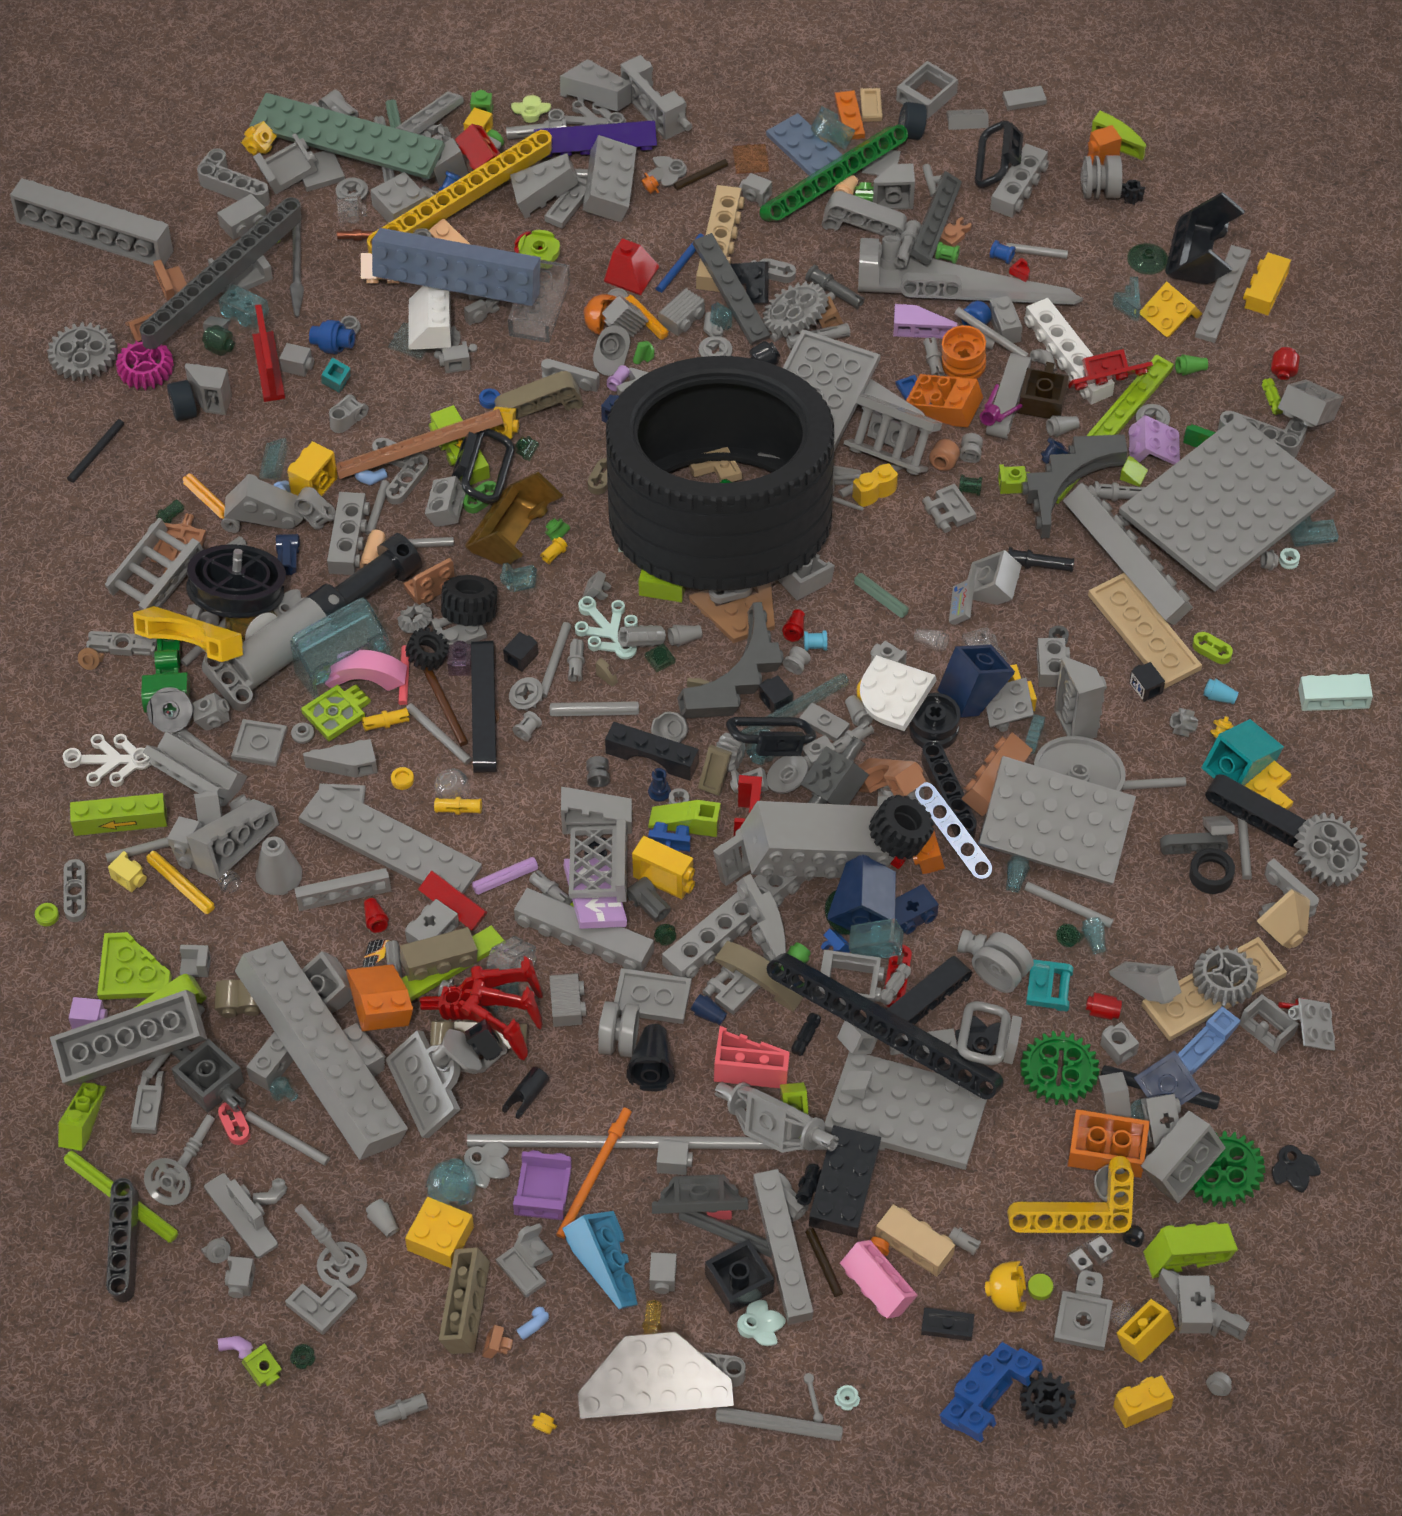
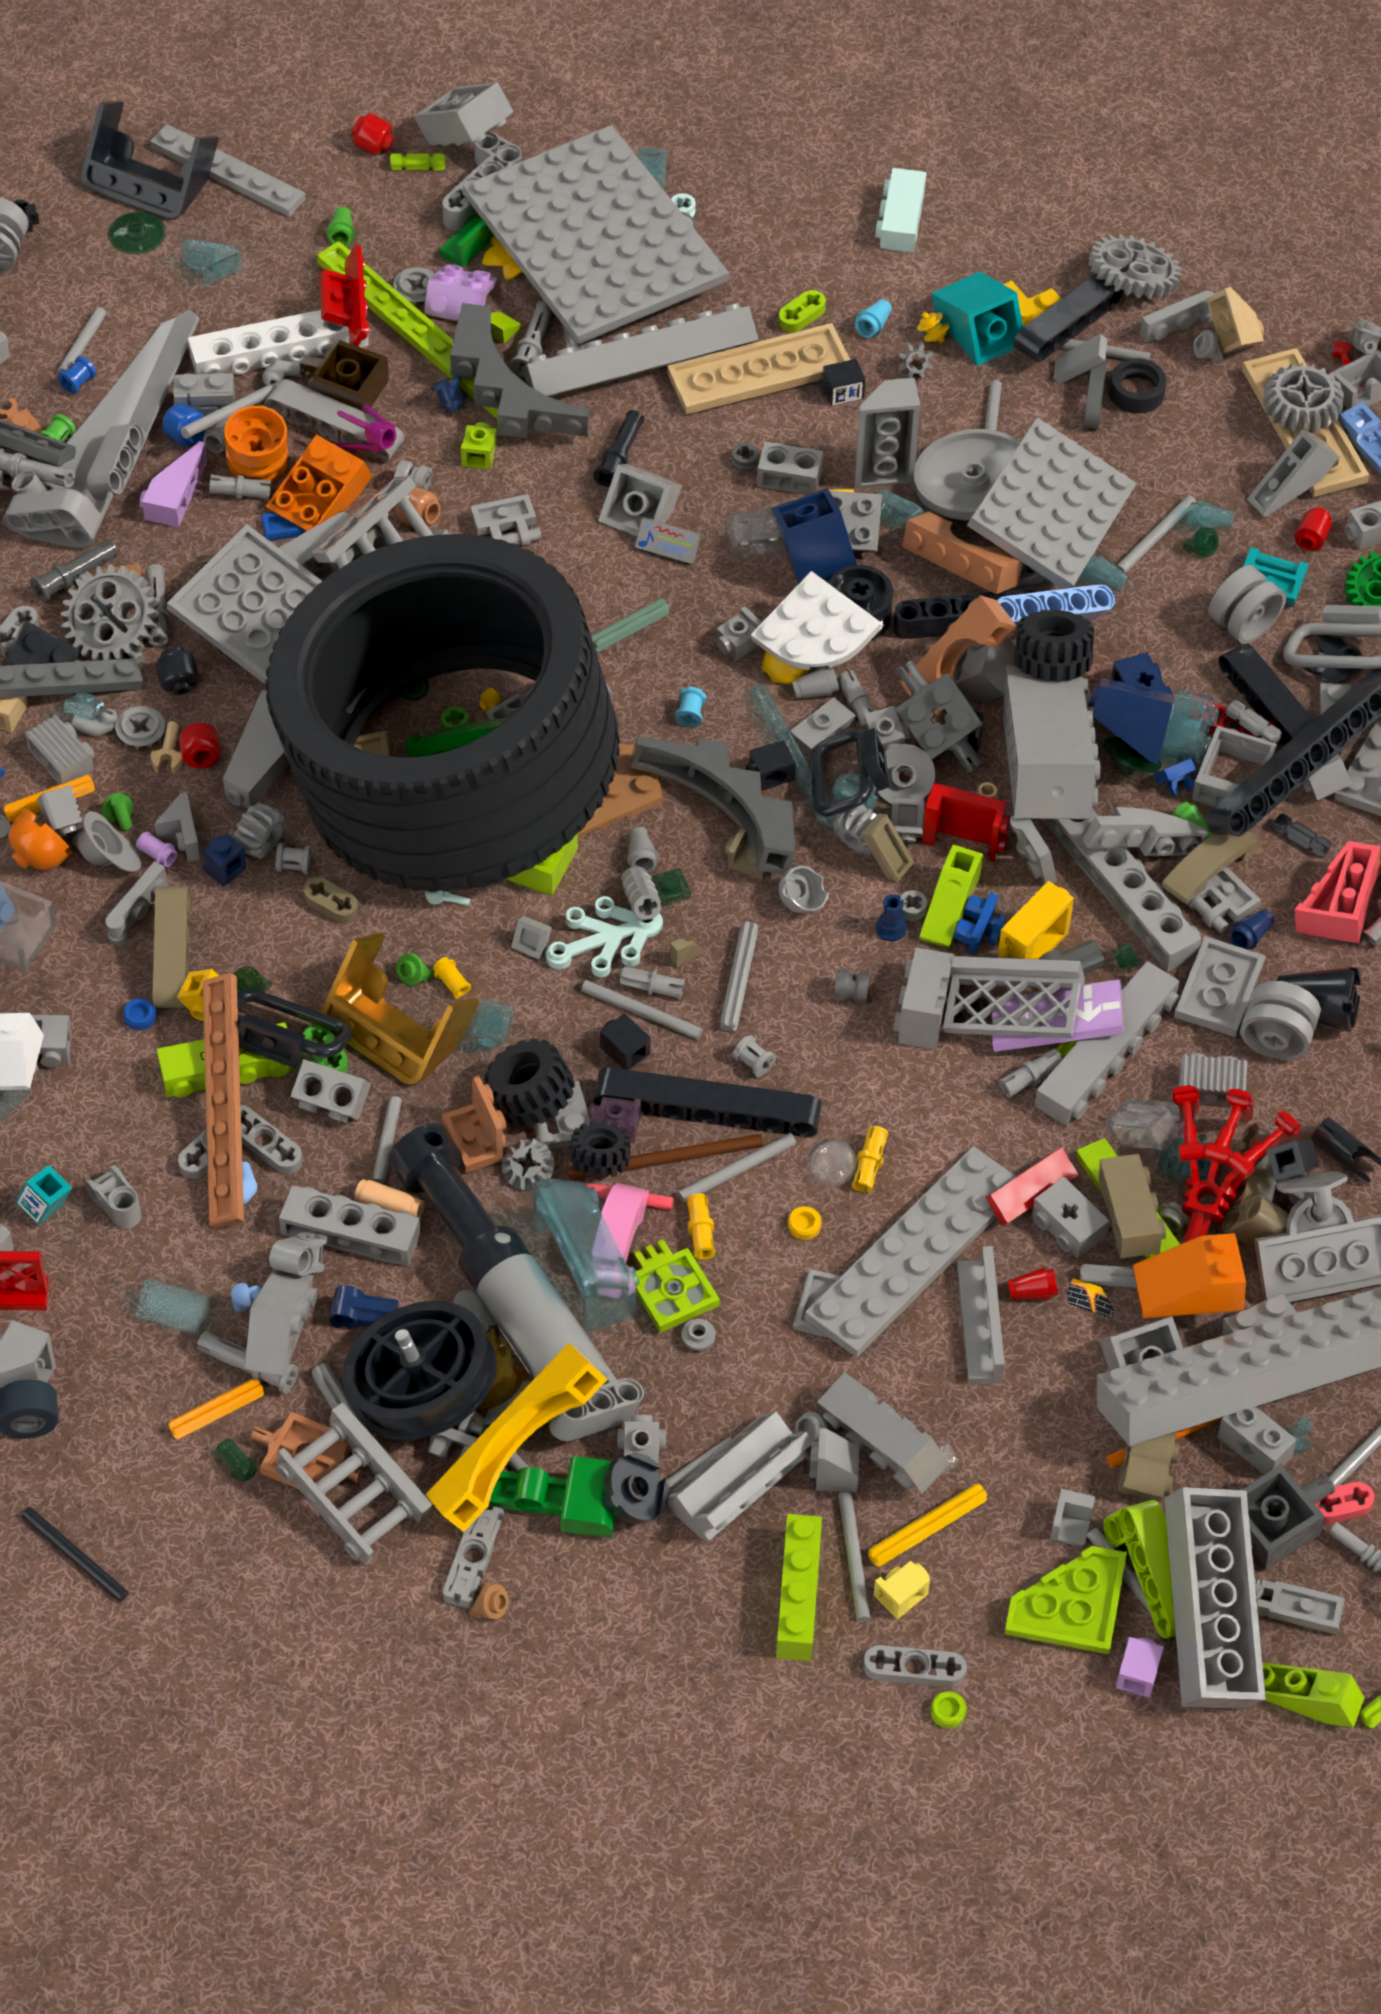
camera: 80 degrees left, 0 degrees up
(110, 760) = (687, 1592): white plant -> none
(179, 842) = (881, 1492): light grey brick -> none
(259, 742) = (700, 1394): light grey tile -> none
(277, 867) = (937, 1391): light grey cone -> none
(313, 469) = (233, 1246): yellow brick -> none
(349, 759) = (765, 1280): light grey slope -> none
(377, 507) = (288, 1180): light grey bar -> none
(505, 875) = (995, 1124): lavender axle -> none
(520, 689) = (690, 1036): light grey gear -> none
(675, 757) = (818, 934): black arch -> none
(794, 627) = (658, 725): red cone -> none
(796, 660) = (718, 730): light grey wheel -> none
(932, 639) = (719, 583): clear cone -> none
(970, 485) = (474, 490): clear green bush -> none
(970, 942) = (1201, 637): light grey wheel -> none
(1020, 270) = (113, 365): red tile -> none
(1061, 424) = (401, 379): light grey cone -> none
(1168, 310) = (244, 224): yellow bracket -> none
(1266, 283) = (232, 119): yellow brick -> none

